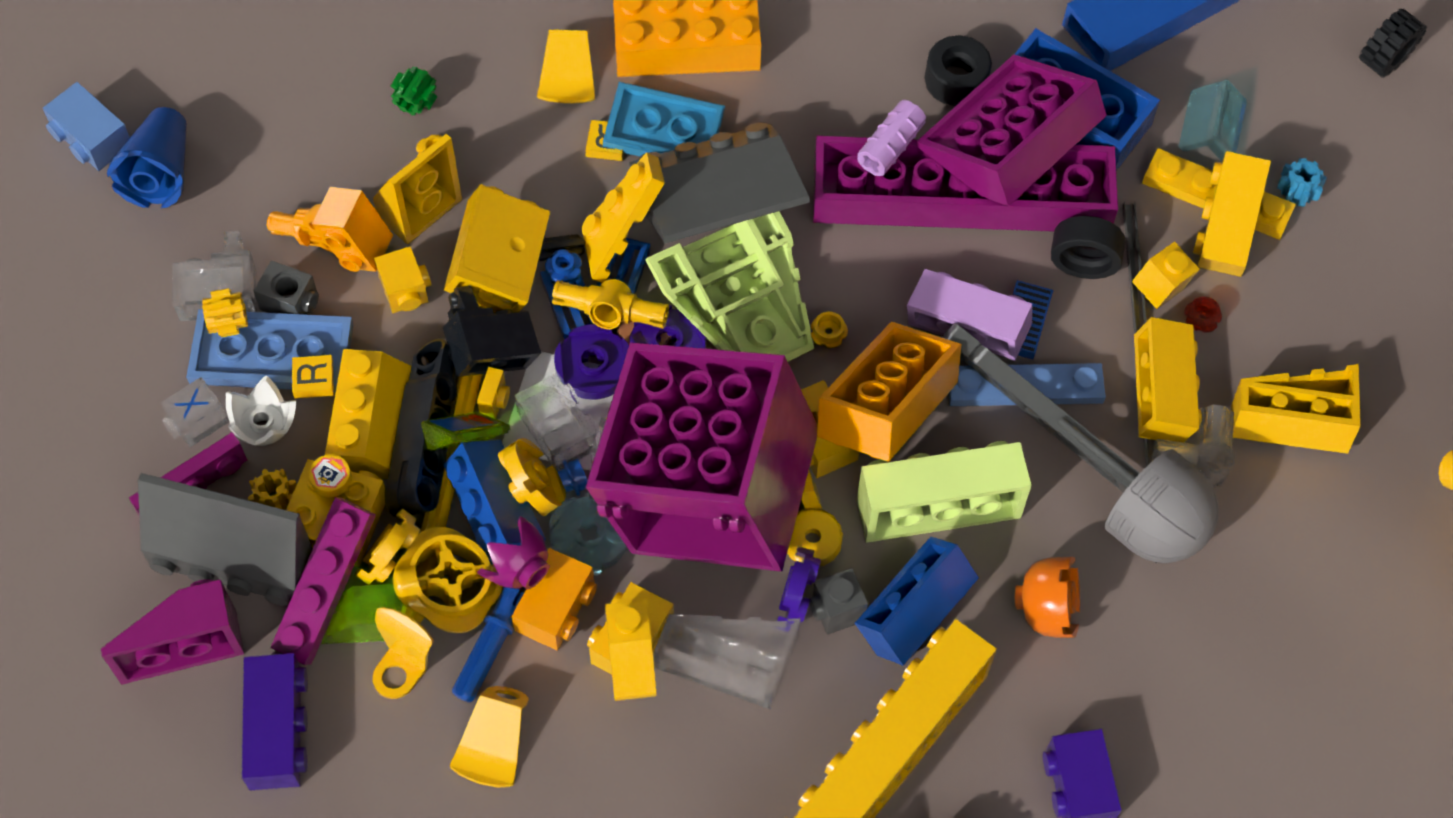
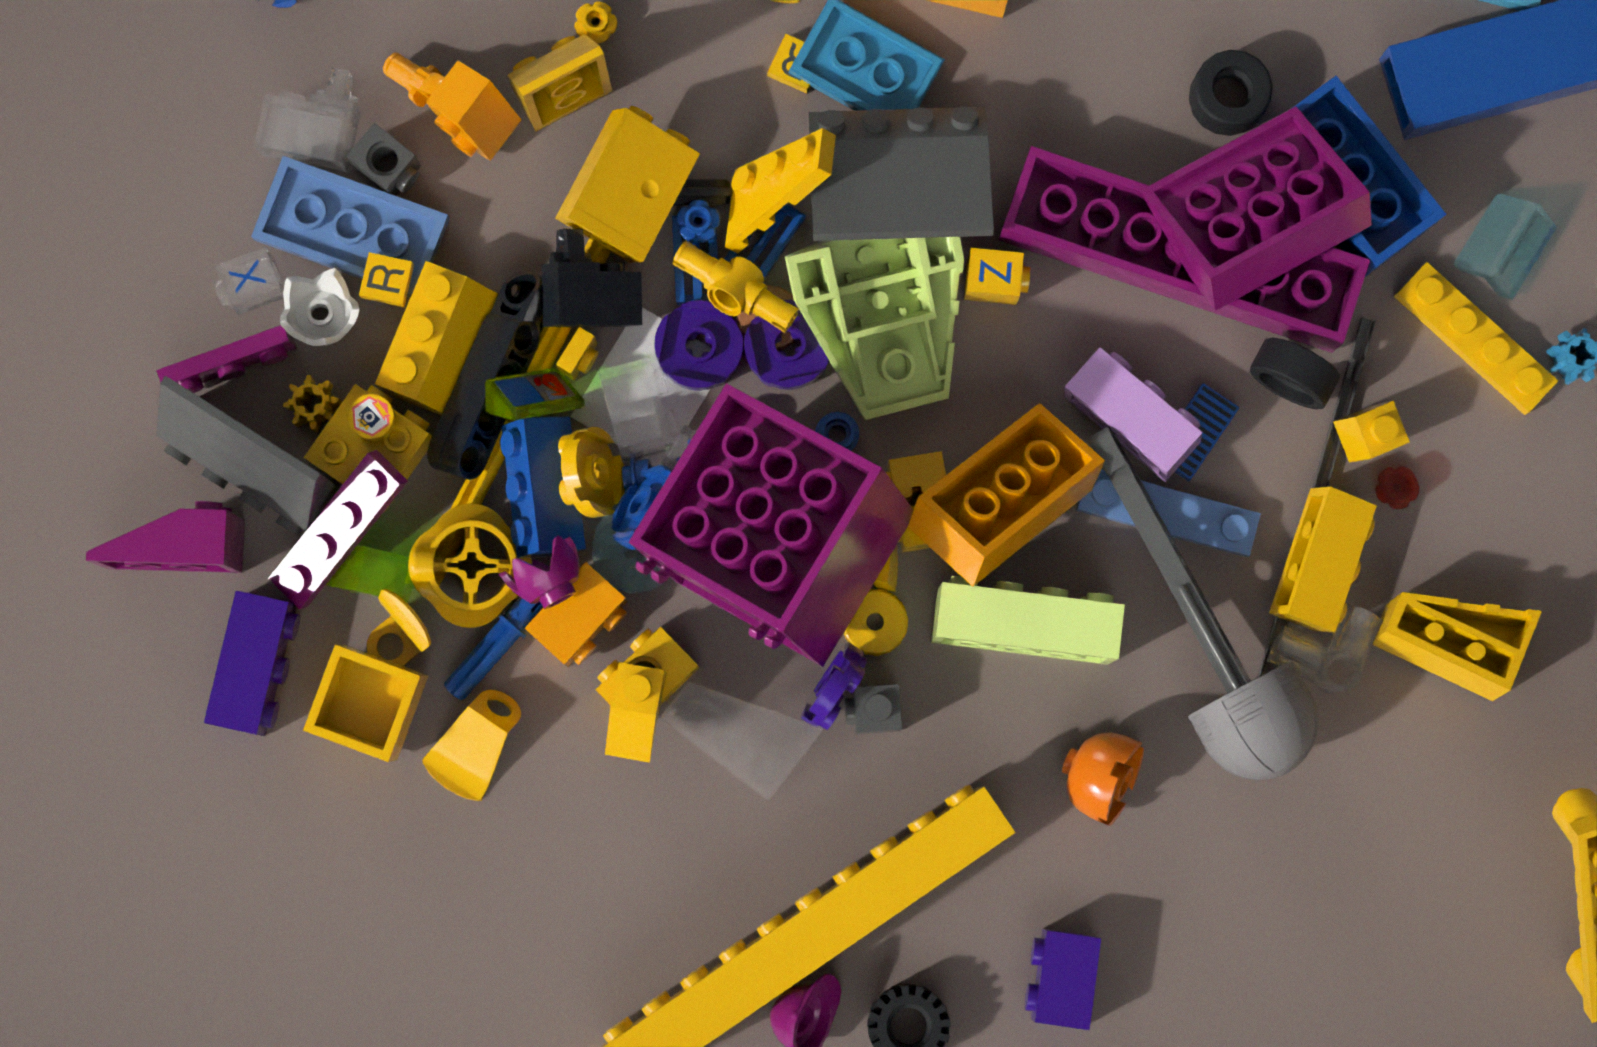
camera: 15 degrees right, 20 degrees up
(224, 312) = (307, 178): yellow gear -> none
(385, 547) = (414, 508): yellow plate -> none
(386, 719) = (365, 703): none -> yellow piece
(403, 279) = (516, 183): yellow brick -> none
(576, 499) = (636, 503): none -> blue tile
(820, 245) = (996, 276): none -> yellow brick
(830, 321) = (975, 371): yellow plate -> none
(891, 138) = (1113, 181): lavender axle -> none
(917, 600) = (958, 735): blue brick -> none
(1231, 213) = (1475, 379): yellow brick -> none

